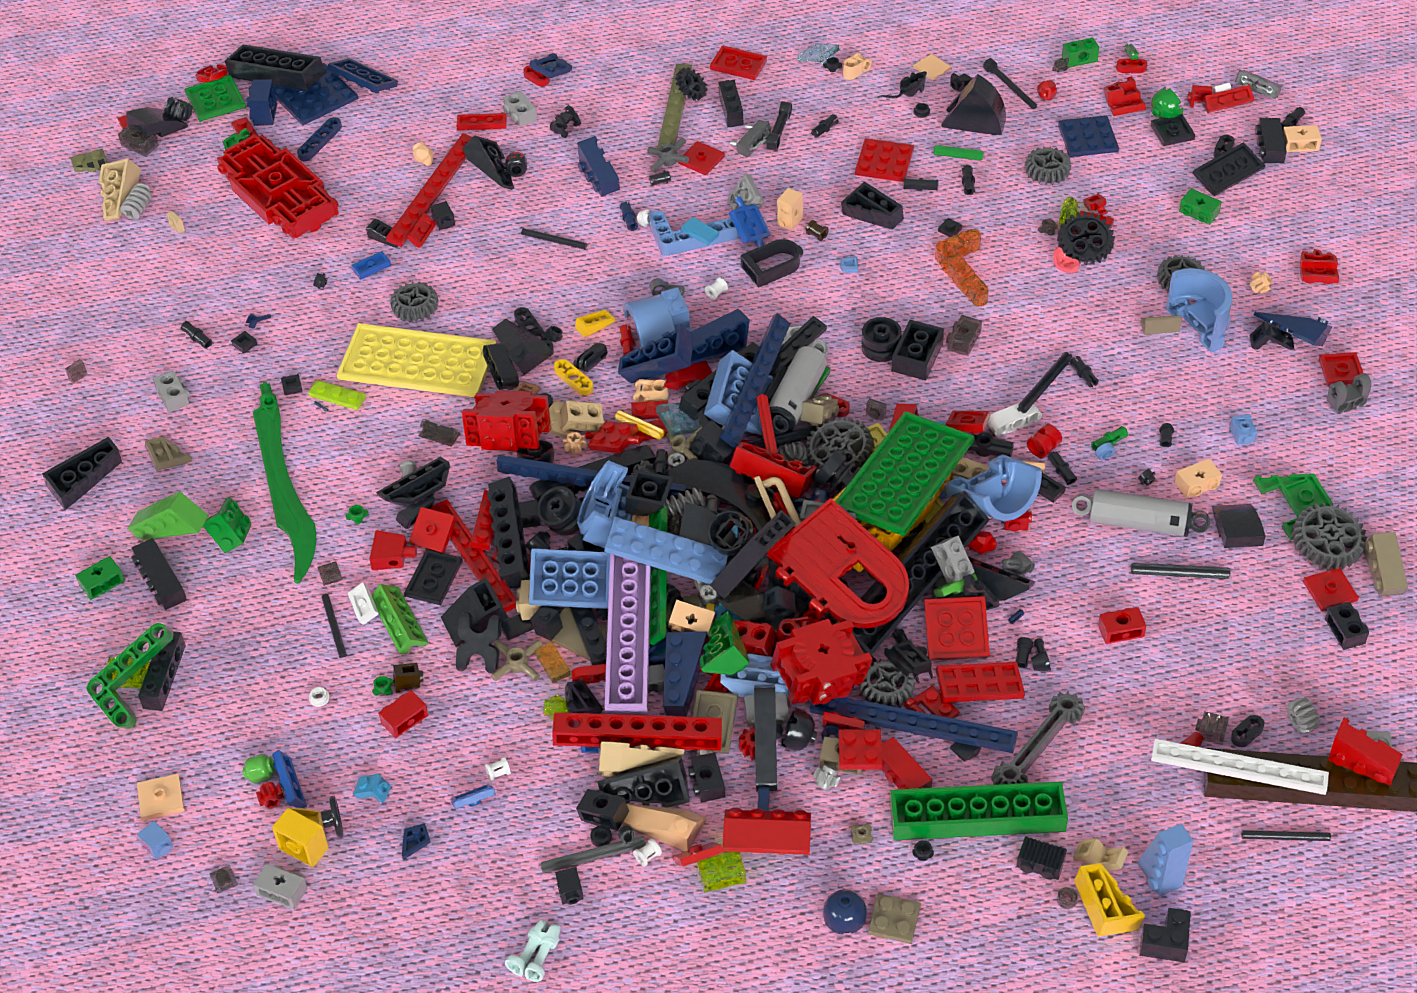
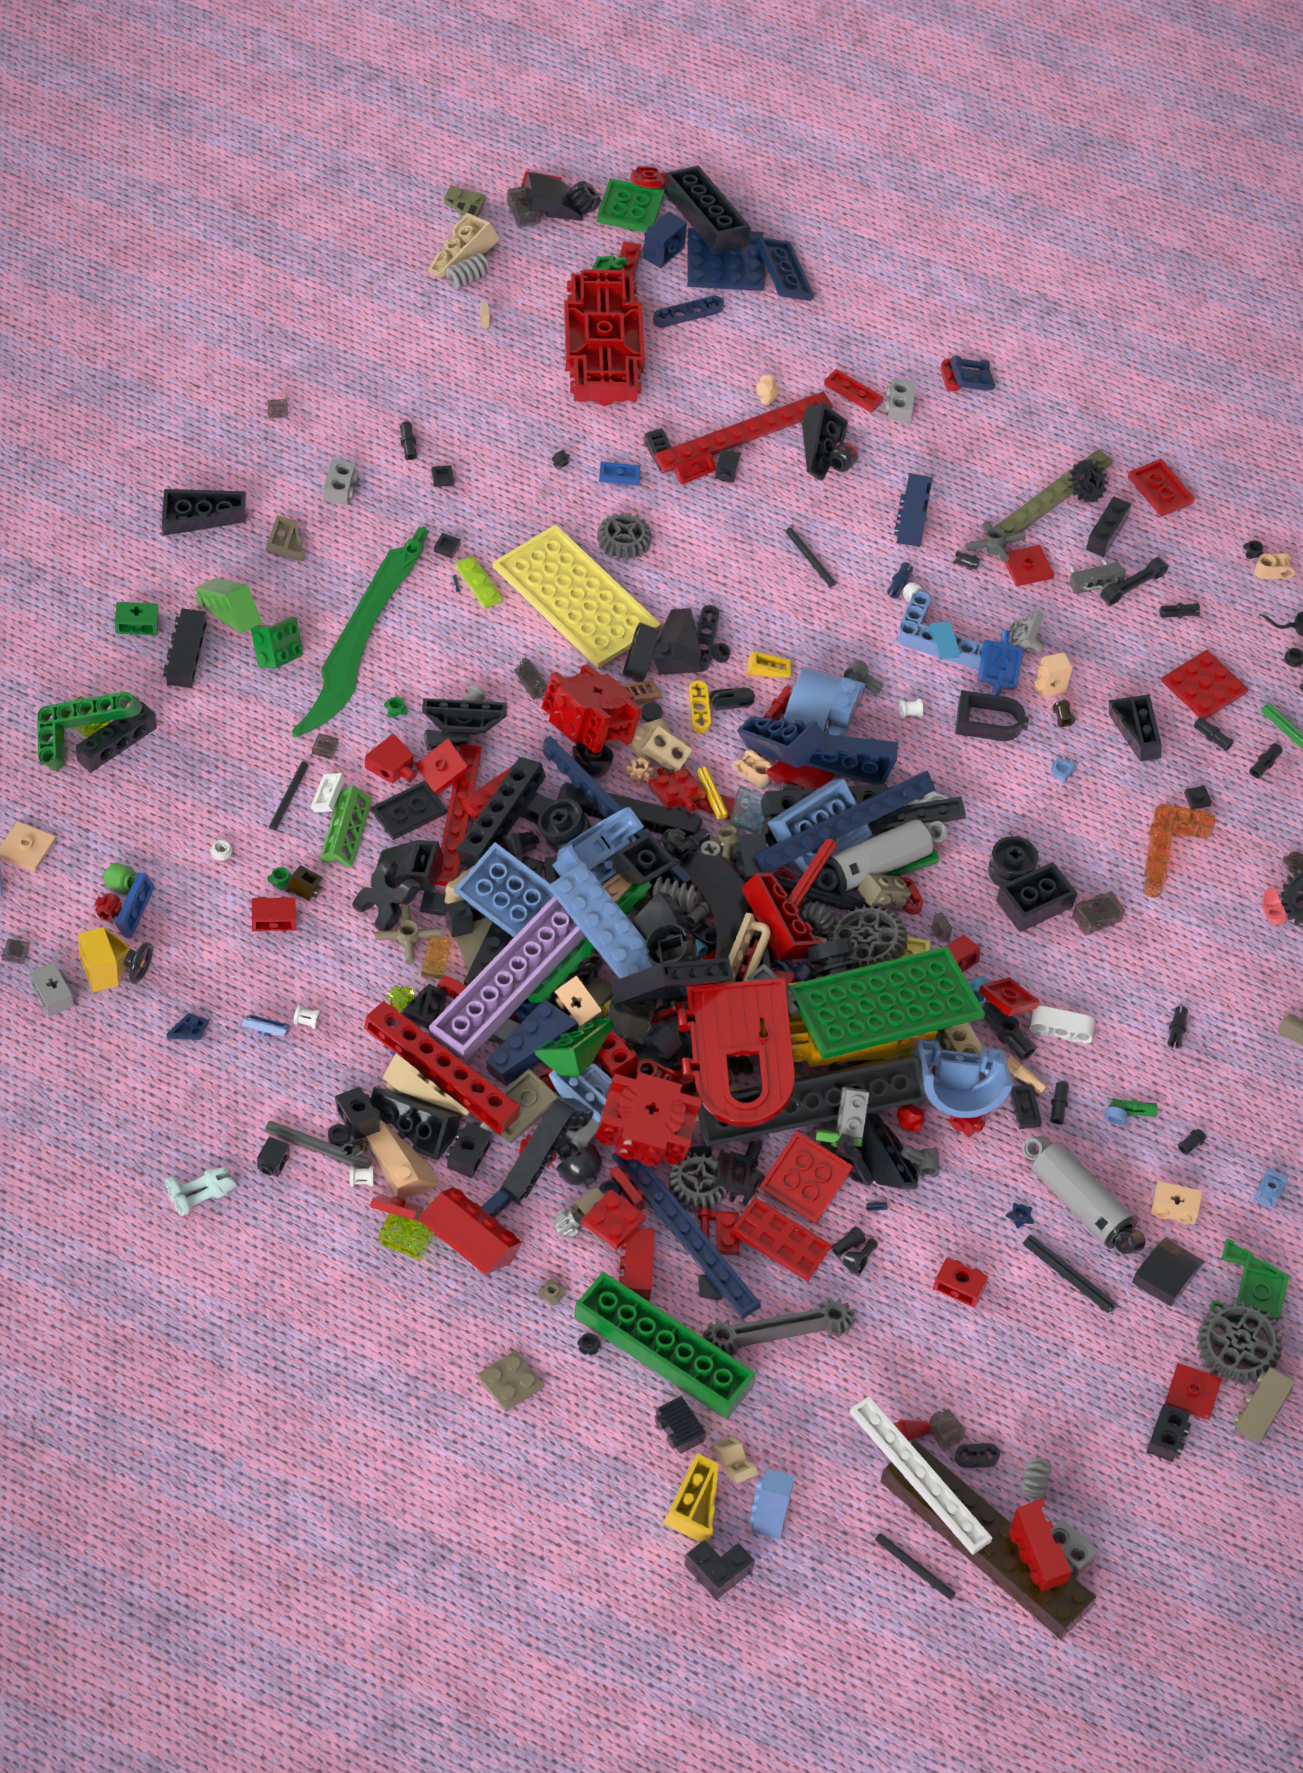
camera: 30 degrees right, 5 degrees up
(252, 319) = (469, 458): dark blue hand -> none
(372, 786) = (195, 959): dark azure bracket -> none
(560, 124) = (923, 440): black piece -> none
(647, 409) = (731, 781): red plate -> none
(772, 387) = (852, 841): black axle -> none
(818, 52) = (1254, 528): clear light blue plate -> none
(845, 911) = (474, 1344): dark blue cylinder -> none
(1044, 382) = (1123, 1011): black axle -> none
(1044, 441) = (1068, 1065): red wheel -> none
(1071, 894) = (670, 1480): clear smoke bush -> none
(1110, 551) = (1020, 1209): none -> dark blue plate
(1147, 477) = (1130, 1167): black plate -> none

